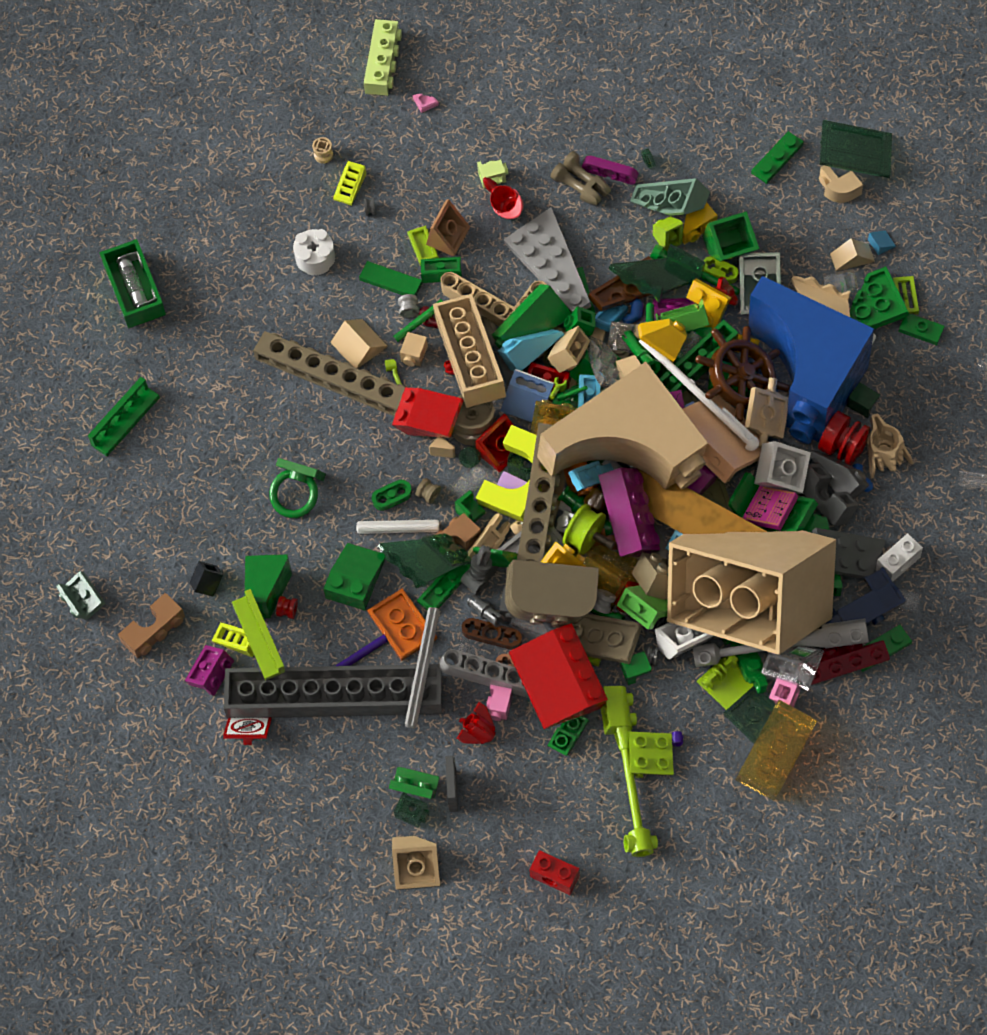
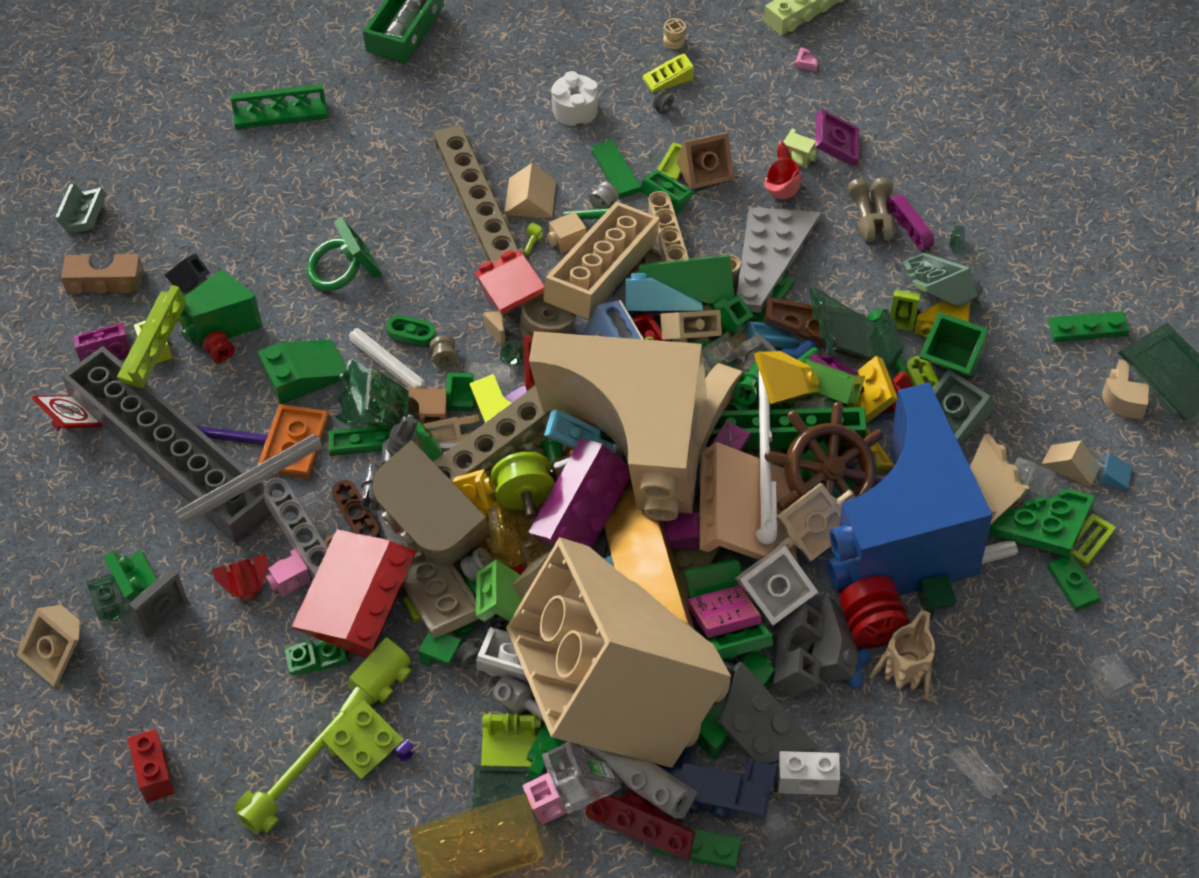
camera: 40 degrees right, 10 degrees down
(508, 145) = (837, 137): none -> magenta plate

